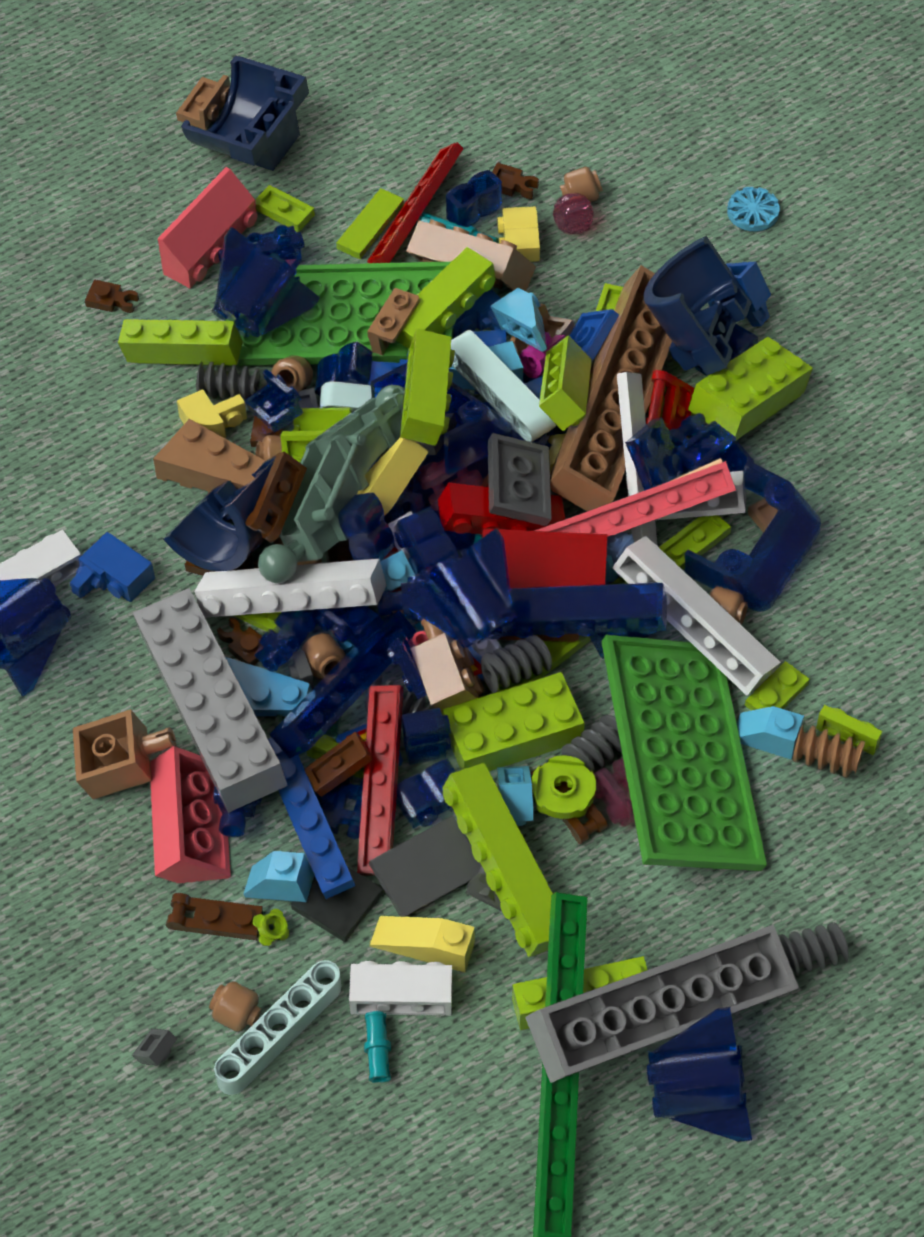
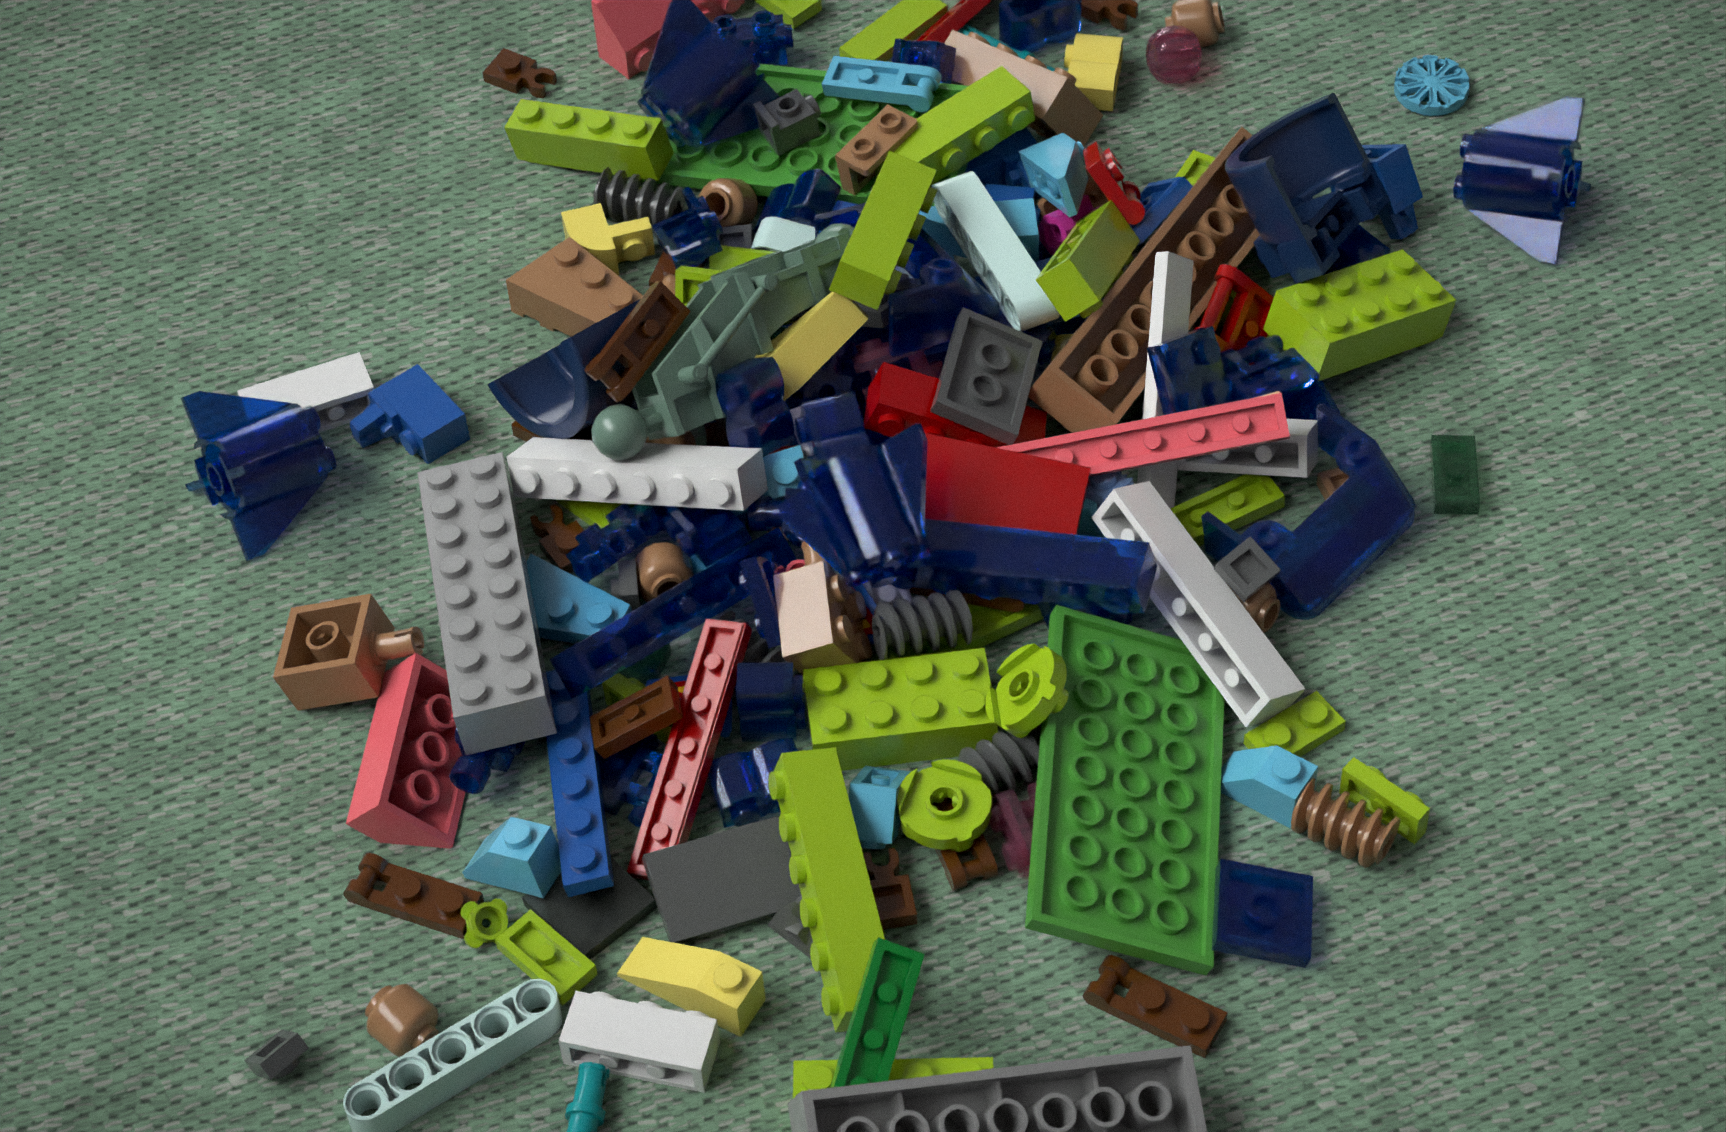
camera: 15 degrees right, 5 degrees down
(319, 941) = (546, 955): none -> lime plate
(321, 307) = (788, 121): none -> dark grey brick
(380, 268) = (882, 82): none -> medium azure plate
(404, 248) = (926, 54): none -> clear blue brick
(543, 853) = (891, 892): none -> reddish brown plate
(565, 320) = (1107, 173): none -> red plate
(615, 703) = (1028, 689): none -> lime plate
(725, 586) = (1247, 569): none -> dark grey plate
(734, 899) = (1155, 1006): none -> reddish brown plate
(790, 822) = (1262, 913): none -> clear blue plate
(815, 946) = (1248, 1094): dark grey piece -> none
(836, 269) = (1525, 175): none -> clear blue brick
(838, 491) = (1454, 474): none -> clear green plate

